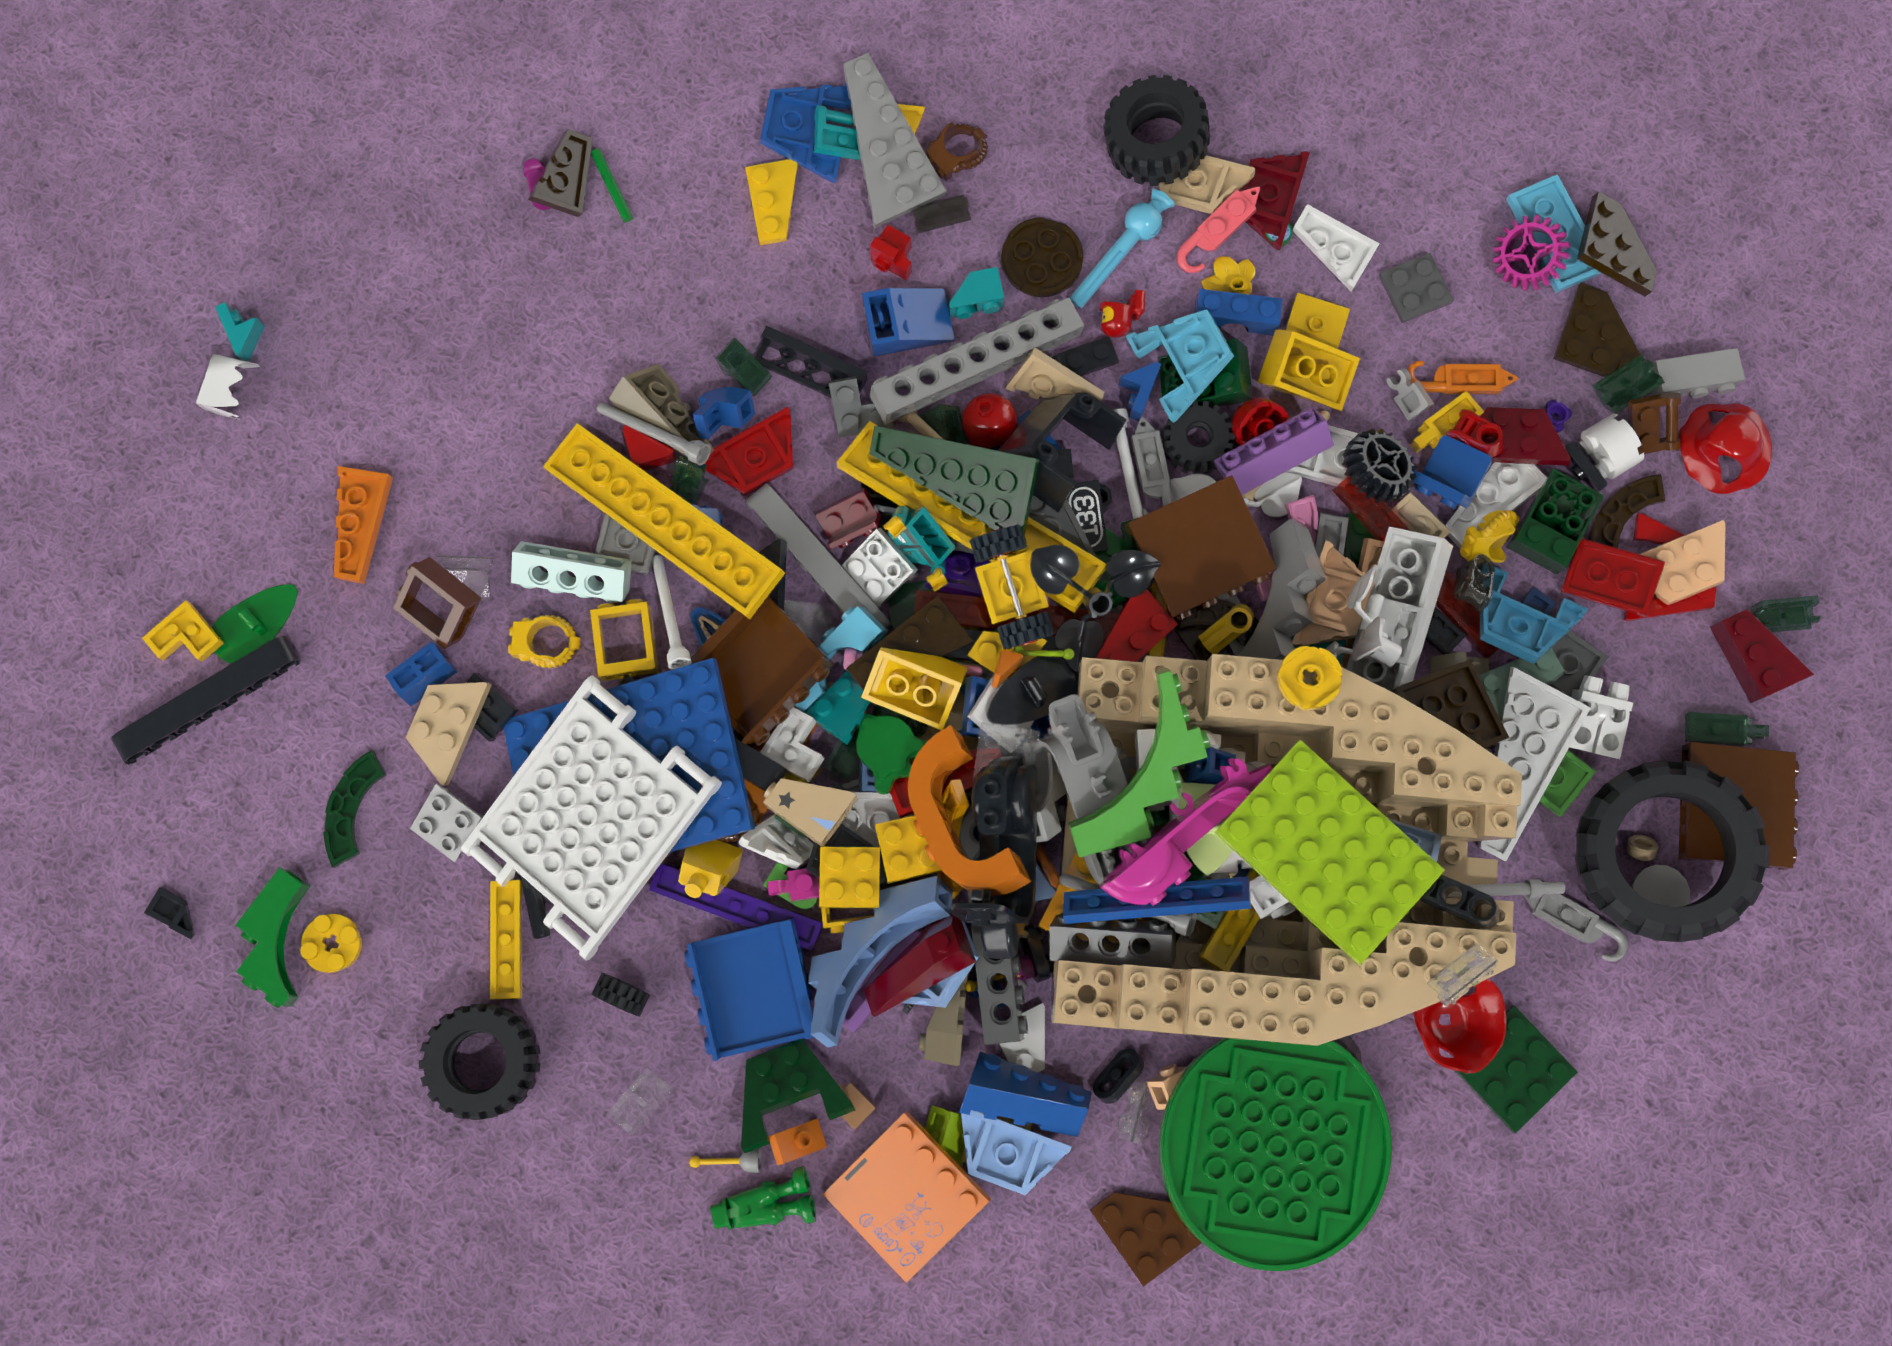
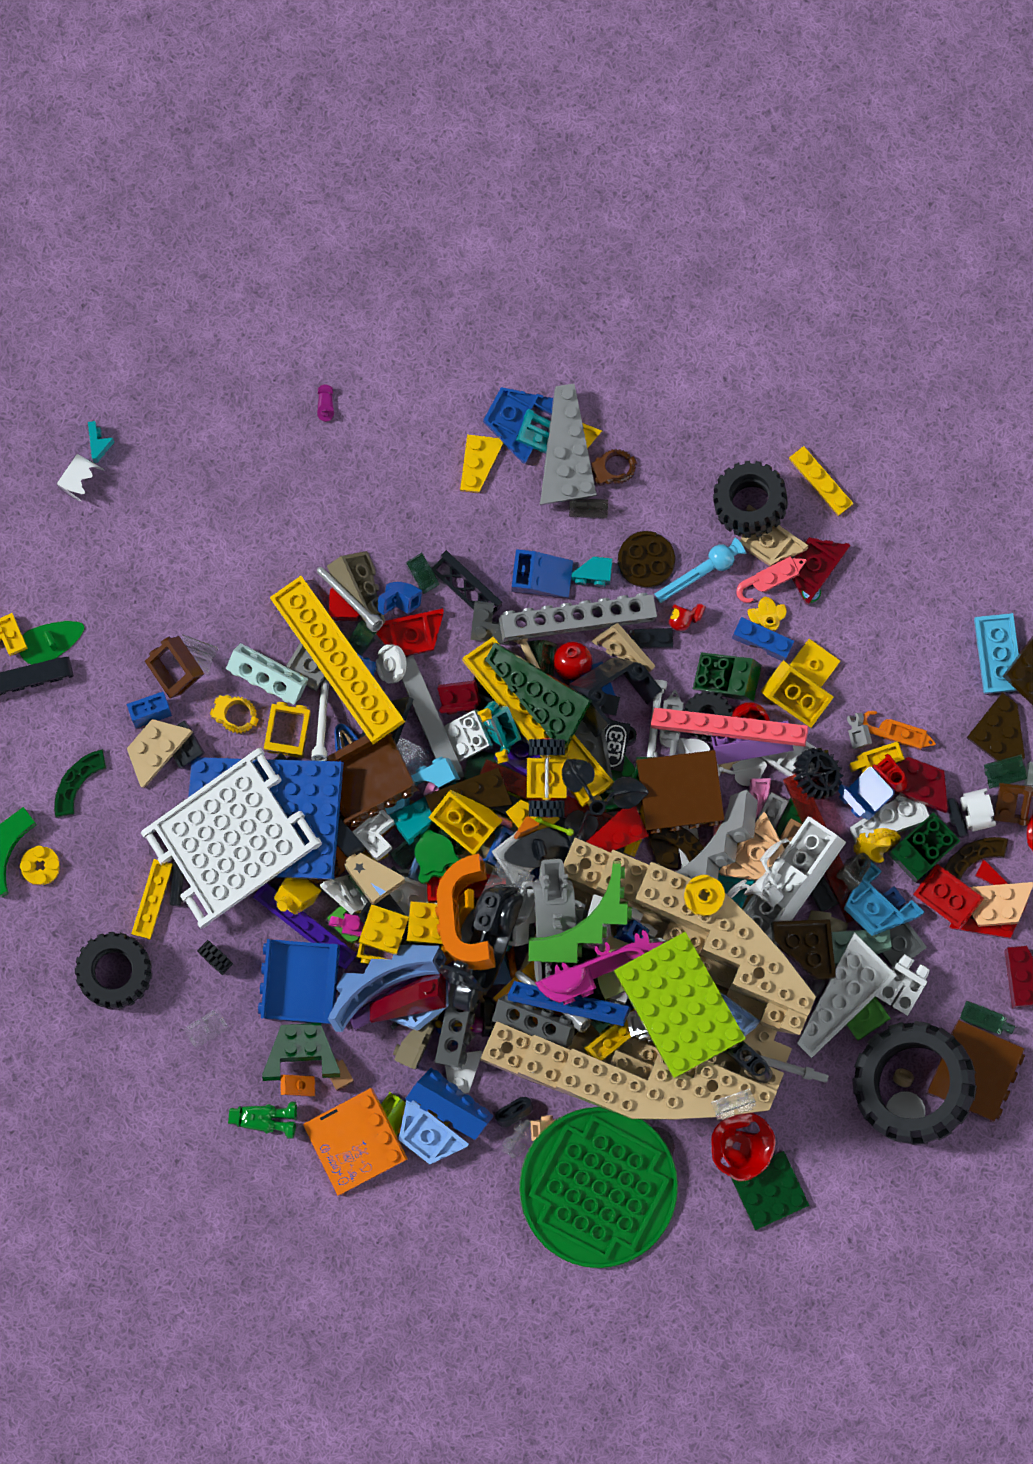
camera: 15 degrees right, 0 degrees up
(361, 508) = (141, 589): orange wing -> none
(445, 822) = (136, 811): light grey hinge -> none
(565, 175) = (345, 402): wing -> none
(611, 185) = (373, 418): green bar -> none
(740, 503) = (391, 663): none -> white tile
(747, 1161) = (262, 1088): hinge -> none
(890, 252) = (545, 525): red brick -> none
(1142, 383) = (684, 667): blue slope -> none
(1144, 1233) = (498, 1214): reddish brown plate -> none
(1196, 351) = (723, 659): medium azure wing -> none
(1225, 630) = (679, 849): yellow piece -> none
(1239, 83) = (821, 481): none -> yellow plate
(1239, 439) = (729, 727): none -> coral plate
(1336, 245) = (846, 614): white wing -> none
(1416, 288) = (890, 660): dark grey plate -> none
(1419, 517) = (835, 817): tan plate -> none
(1544, 250) = (973, 646): dark pink gear -> none
(1562, 412) = (958, 777): dark purple plate -> none
(1577, 921) = (843, 1109): light grey plate -> none

